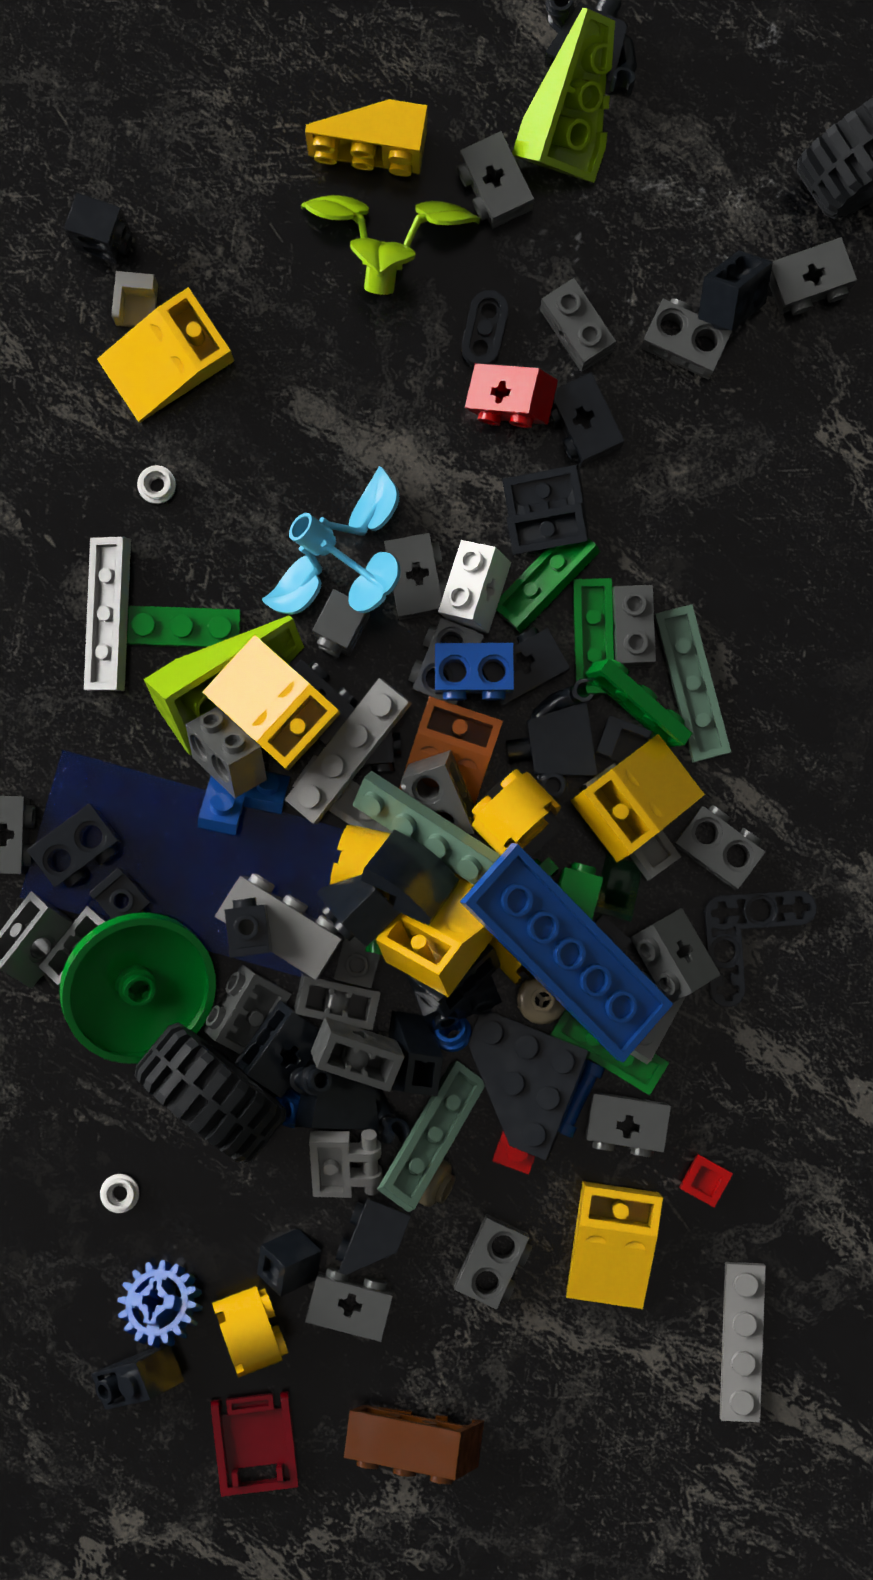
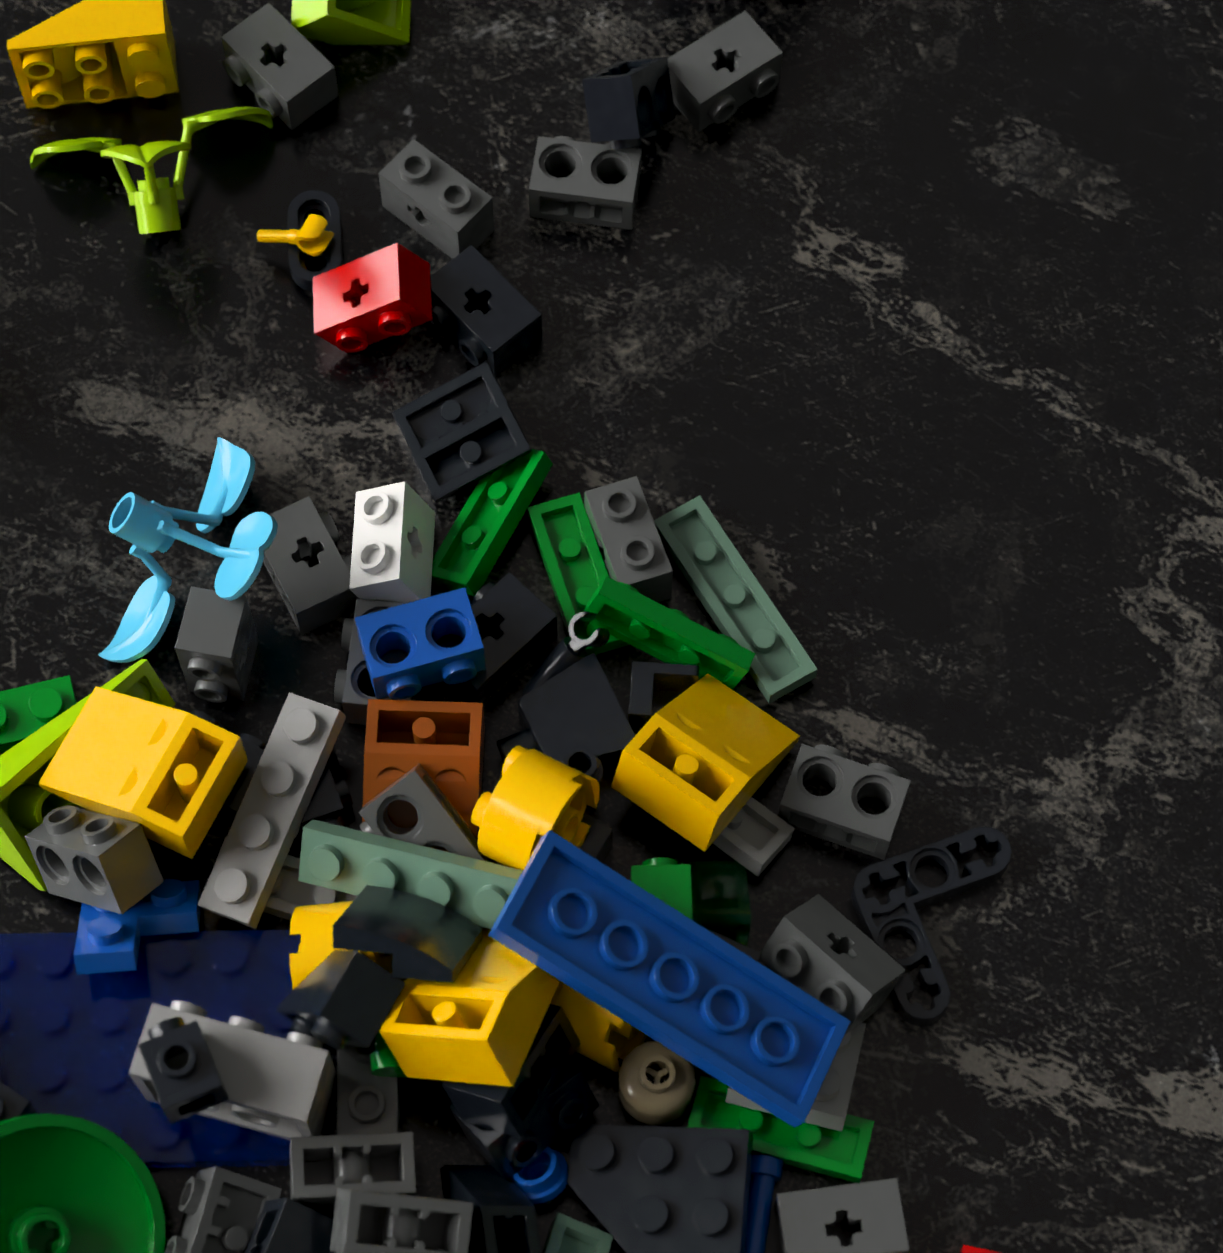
camera: 15 degrees left, 20 degrees down
(482, 332) = (310, 238): none -> yellow hand

